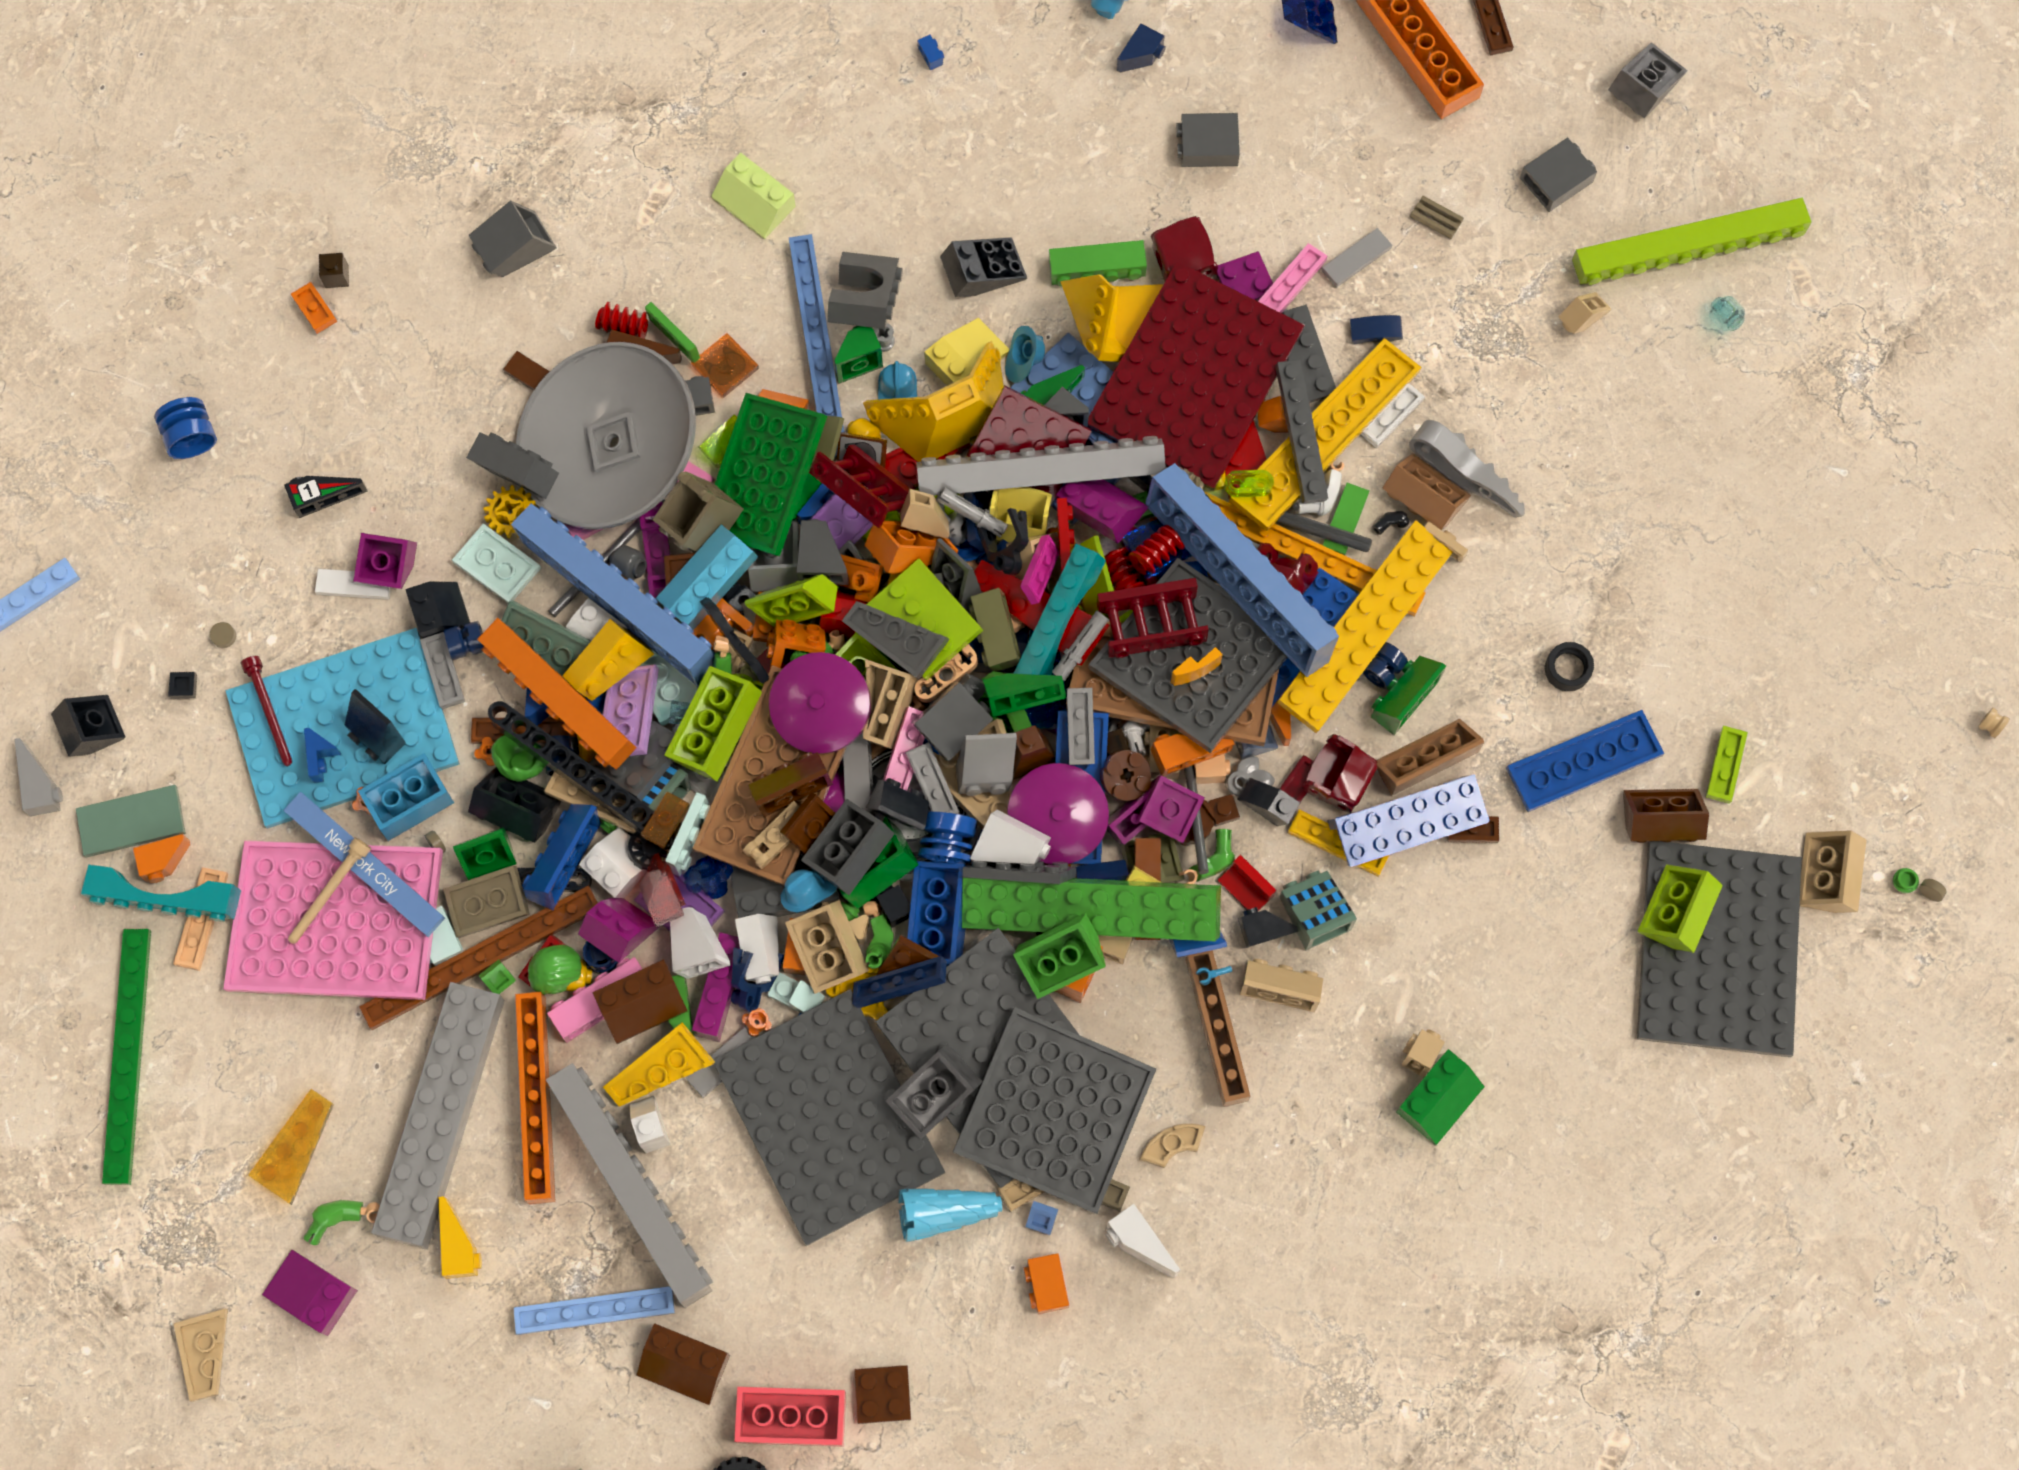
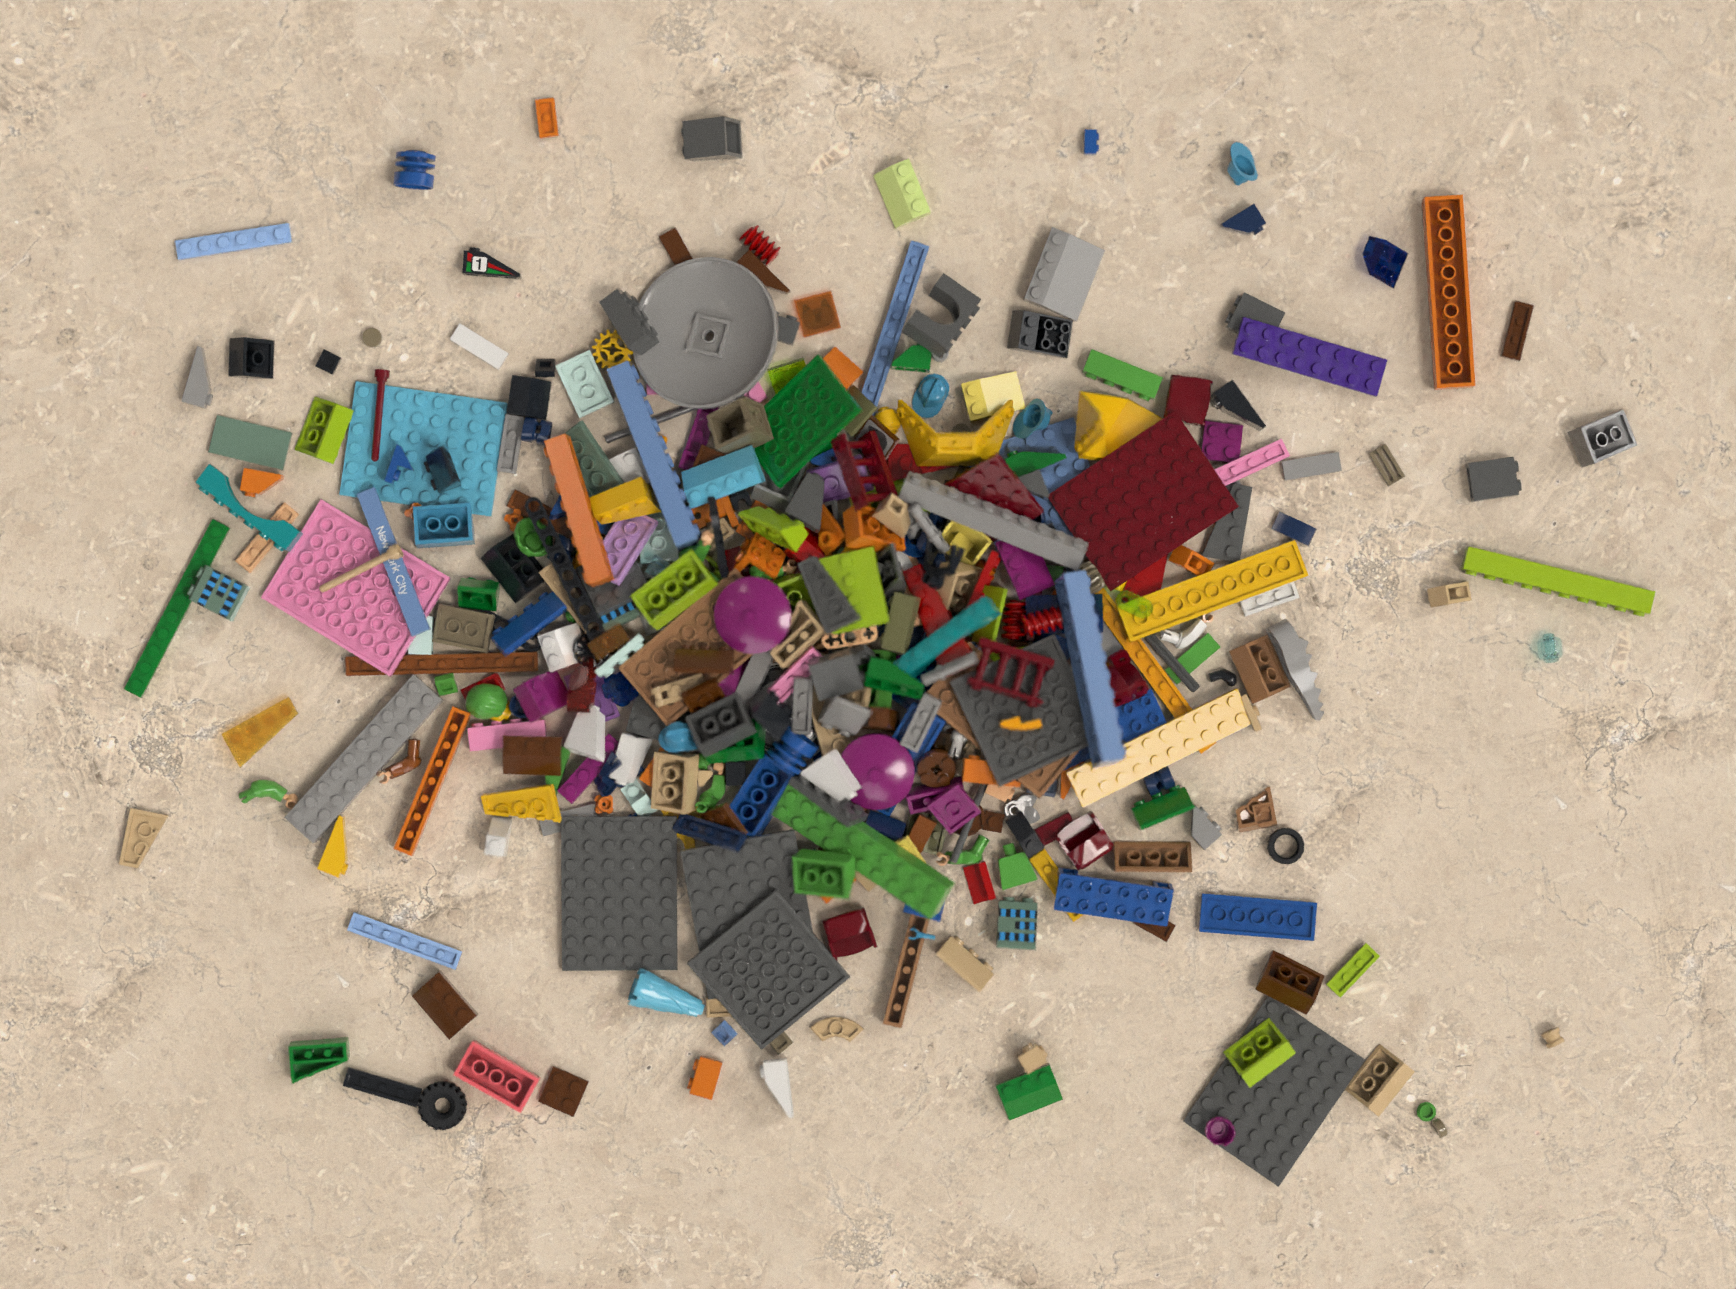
camera: 25 degrees right, 15 degrees up
(166, 1006) = (218, 592): none -> sand green slope
(213, 761) = (324, 430): none -> lime slope
(309, 1293) = (226, 832): magenta slope -> none
(333, 270) = (574, 97): dark brown brick -> none
(384, 560) = (508, 343): magenta slope -> none
(434, 840) = (448, 567): dark tan tile -> none
(442, 568) = (545, 368): none -> black plate
(494, 1097) = (405, 765): none -> dark orange arm
(629, 562) = (675, 431): dark grey head -> none
(630, 1187) = (466, 872): light grey brick -> none
(675, 335) = (791, 272): bright green tile -> none
(933, 1091) = (695, 918): flat silver slope -> none
(975, 193) = (1064, 274): none -> light grey slope
(1040, 569) = (952, 596): dark pink tile -> none
(1128, 1020) = (849, 933): none -> dark red piece
(1243, 230) = (1234, 403): none -> black slope
(1263, 927) = (975, 918): black slope -> none
(1278, 847) = (1015, 868): none -> bright green torso
(1289, 145) = (1309, 356): none -> dark purple plate
(1301, 431) = (1192, 584): dark grey plate -> none
(1465, 694) = (1202, 829): none -> light grey slope
(1515, 648) = (1257, 813): none -> medium nougat slope
(1690, 1021) = (1220, 1131): none -> magenta hair

